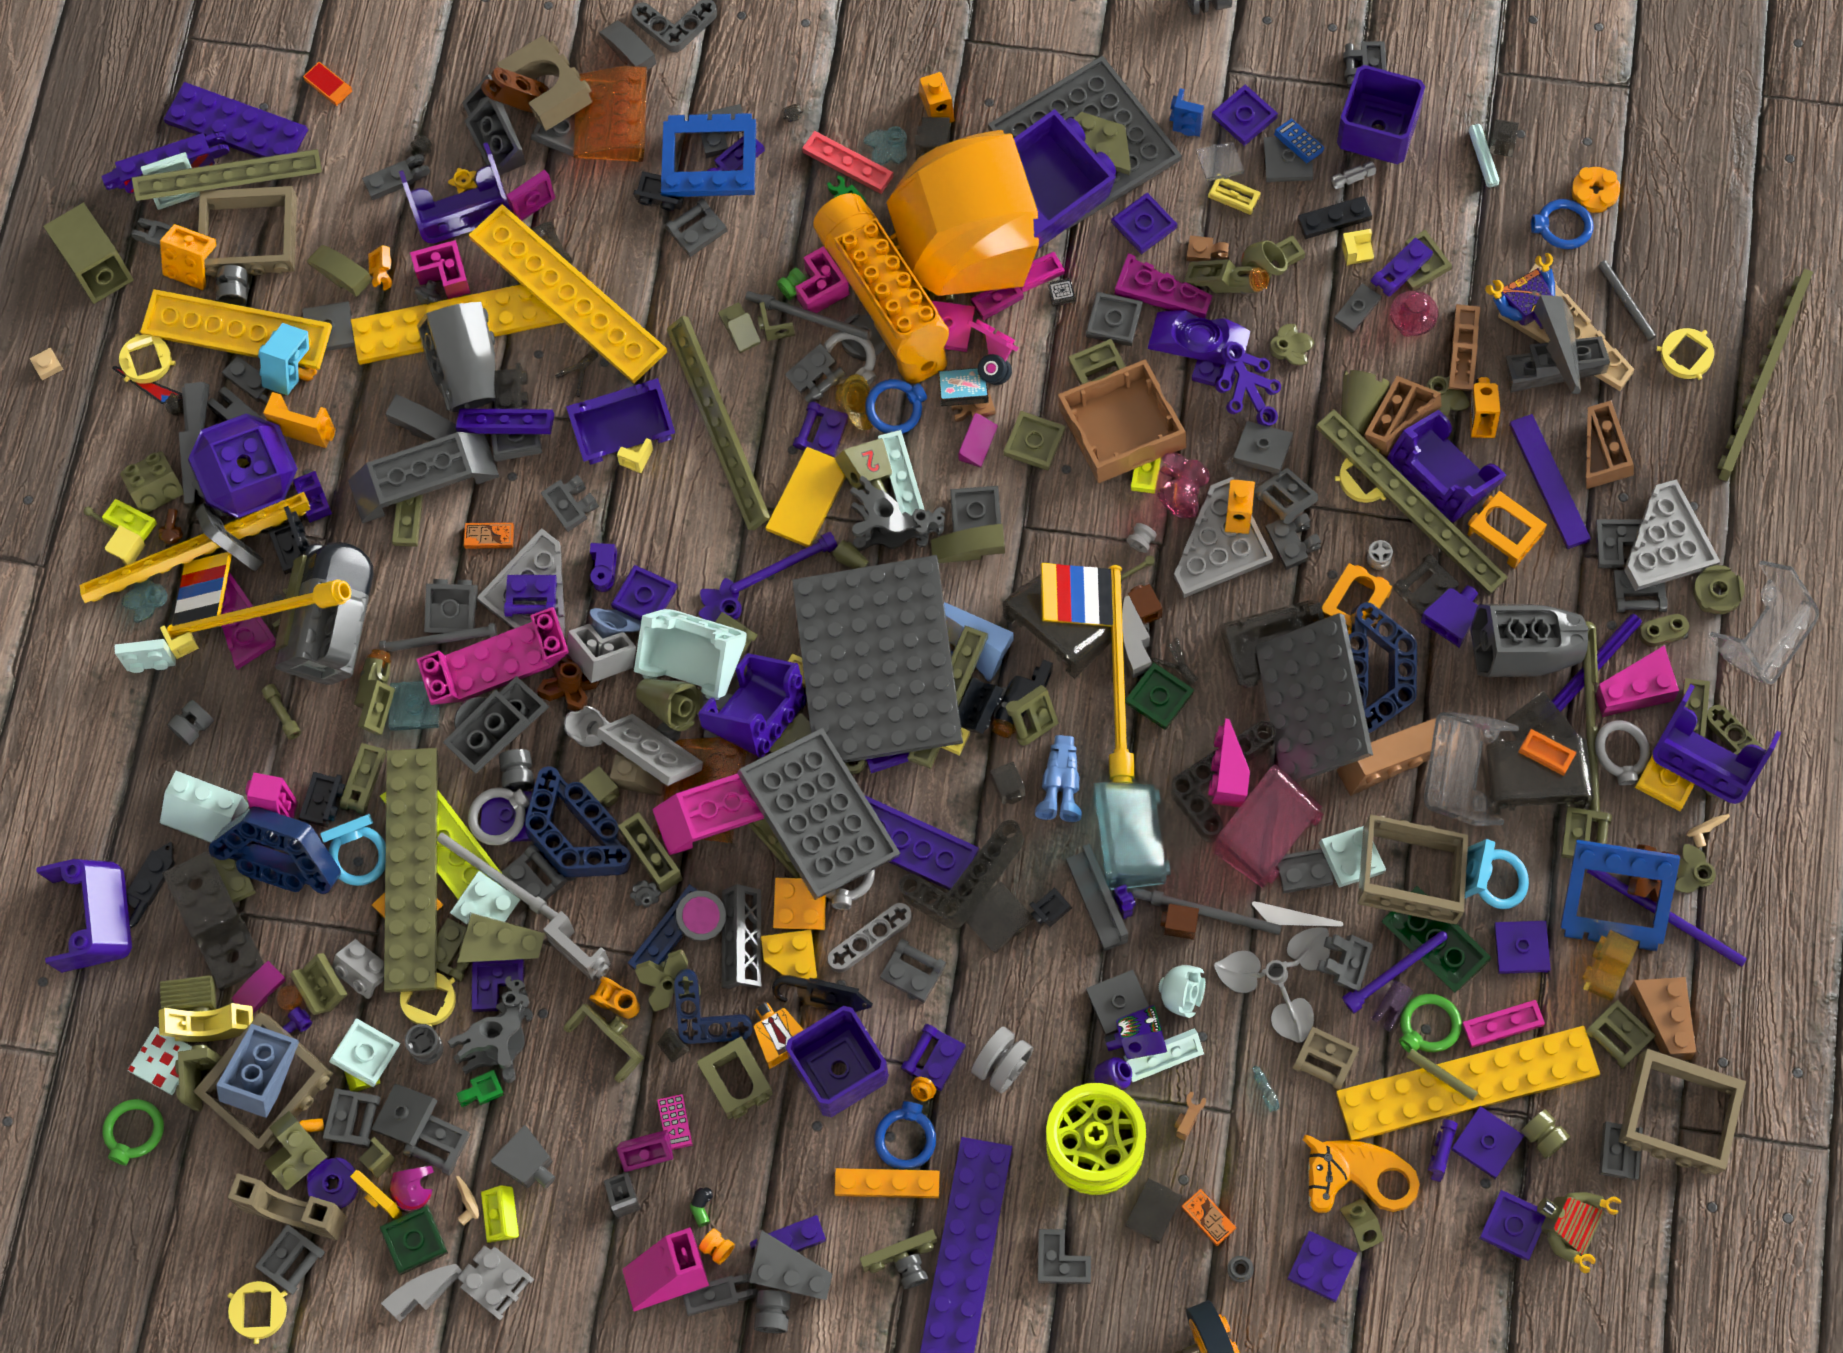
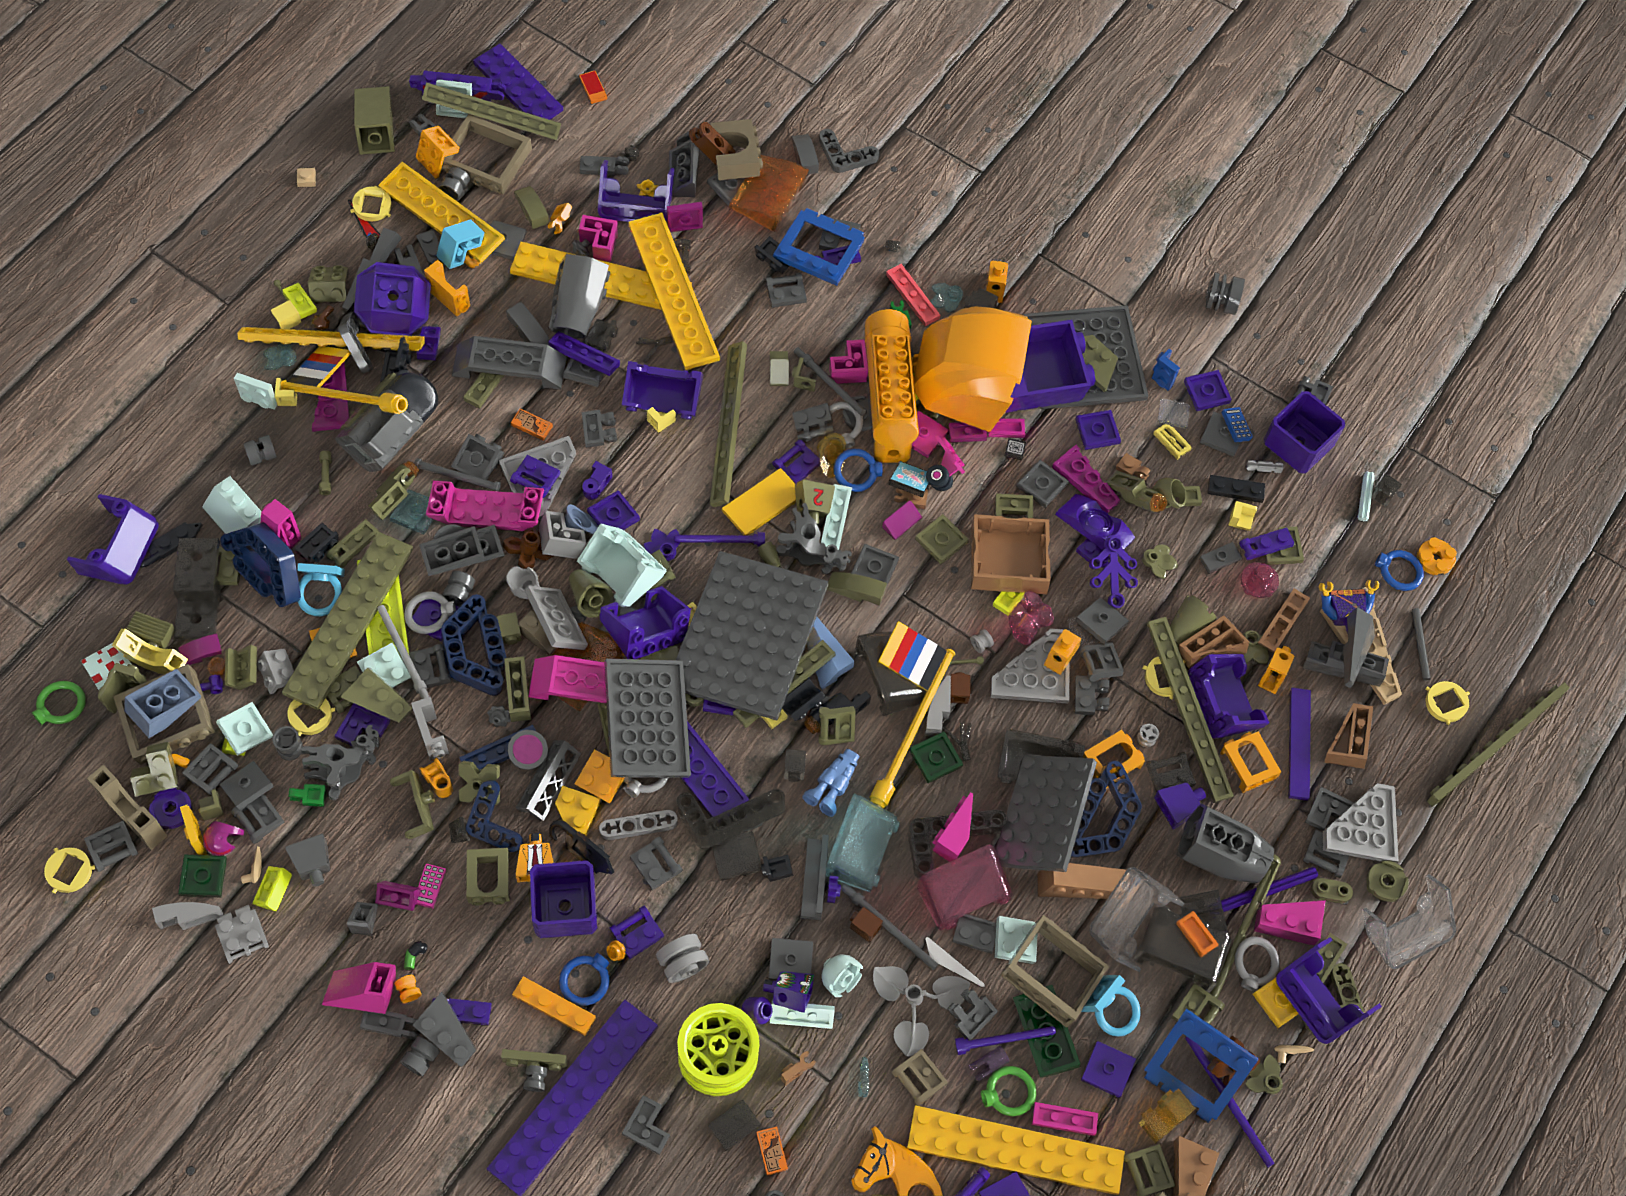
camera: 15 degrees right, 5 degrees down
(788, 283) = (827, 353): bright green wheel -> none
(1442, 1074) = (999, 1133): olive bar -> none

